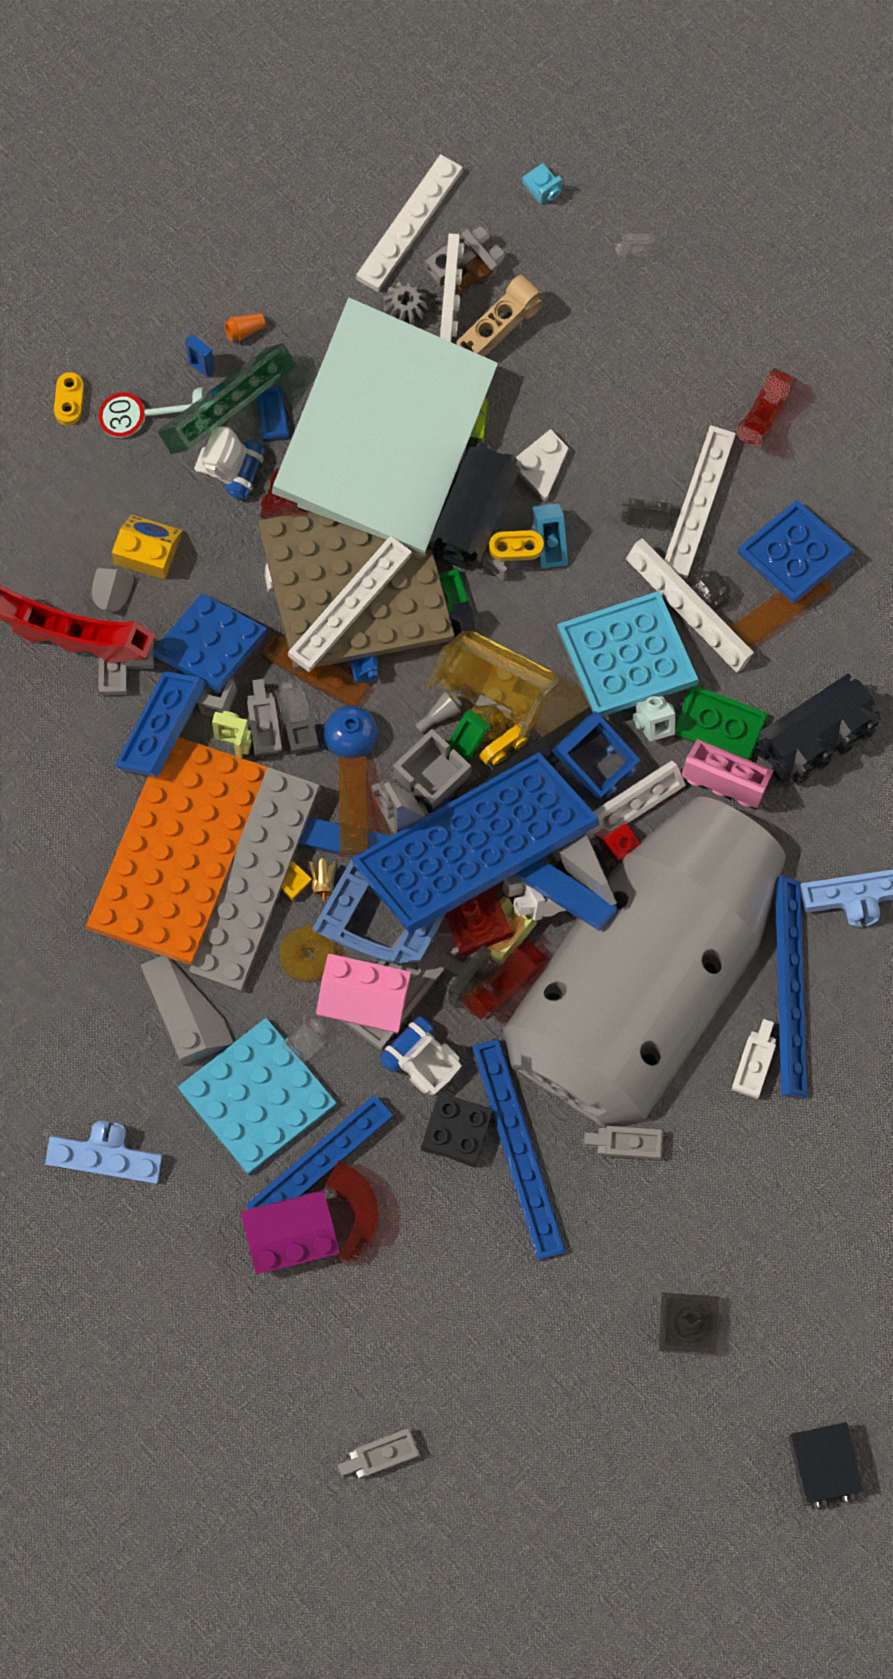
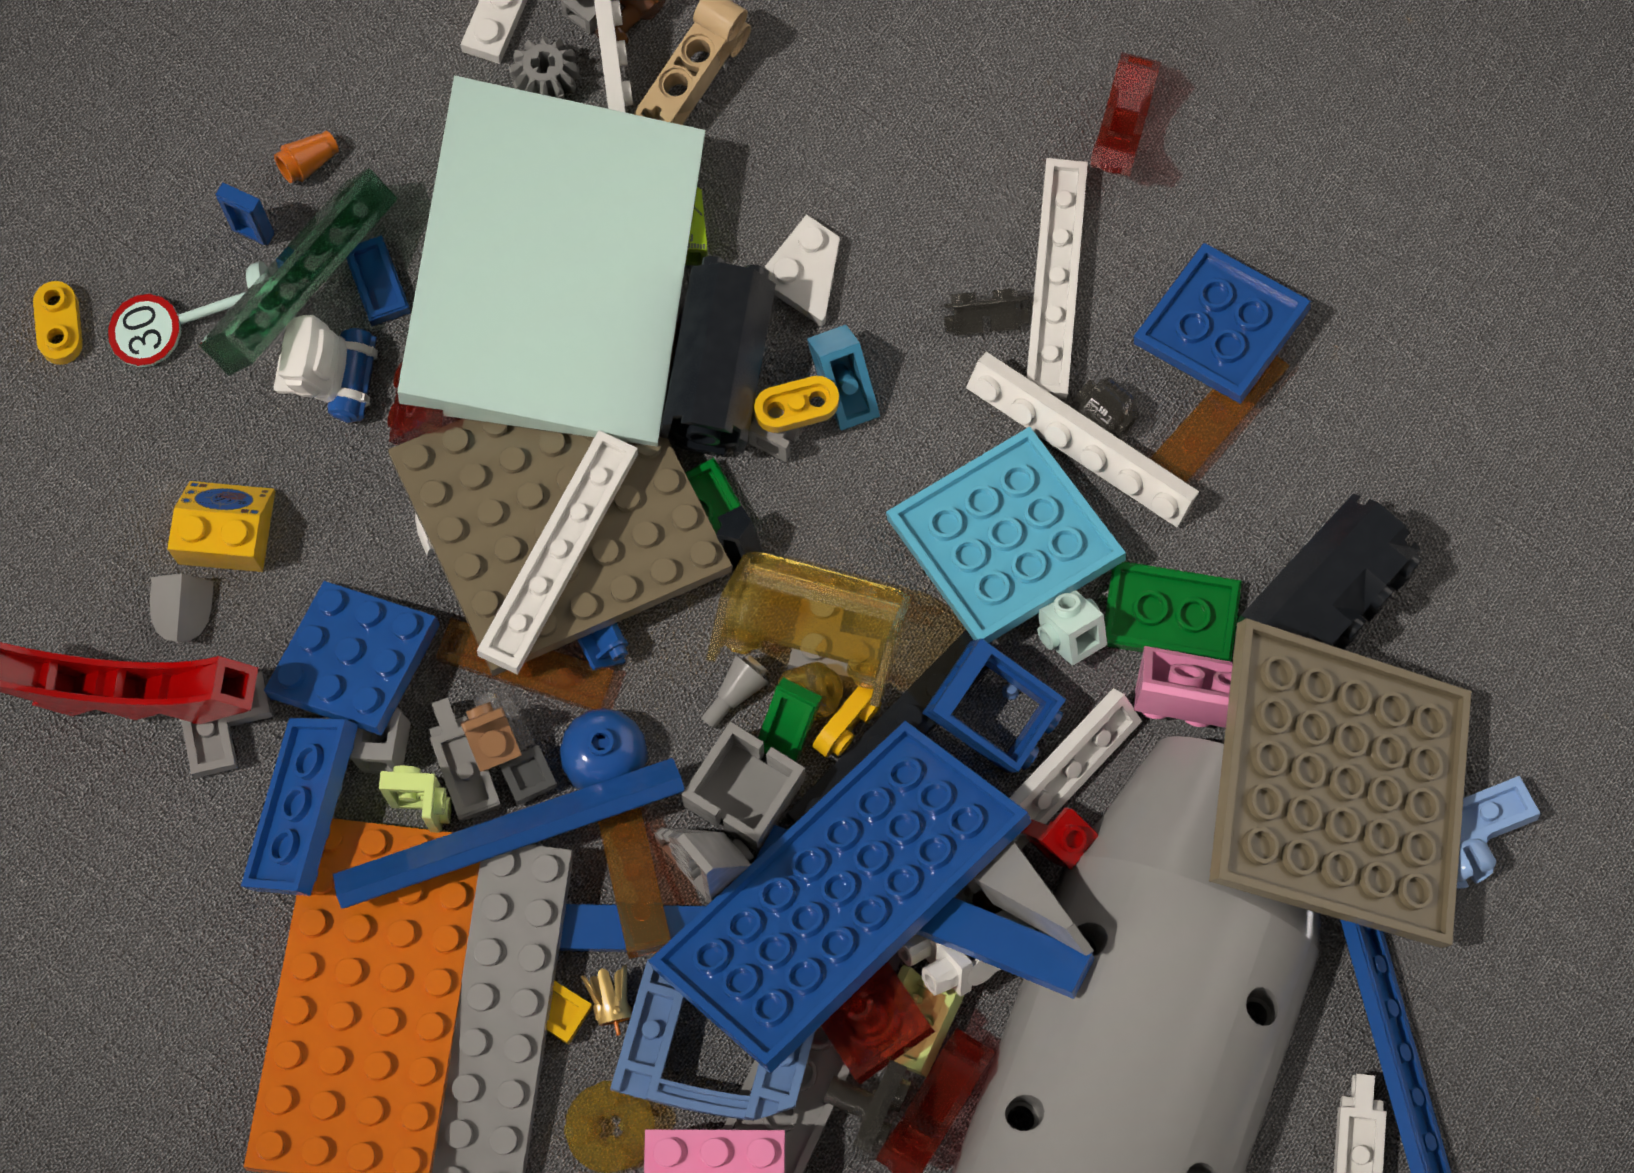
camera: 10 degrees left, 0 degrees up
(283, 766) = (507, 833): none -> blue tile
(284, 706) = (490, 736): none -> medium nougat bracket
(793, 843) = (1341, 785): none -> dark tan plate

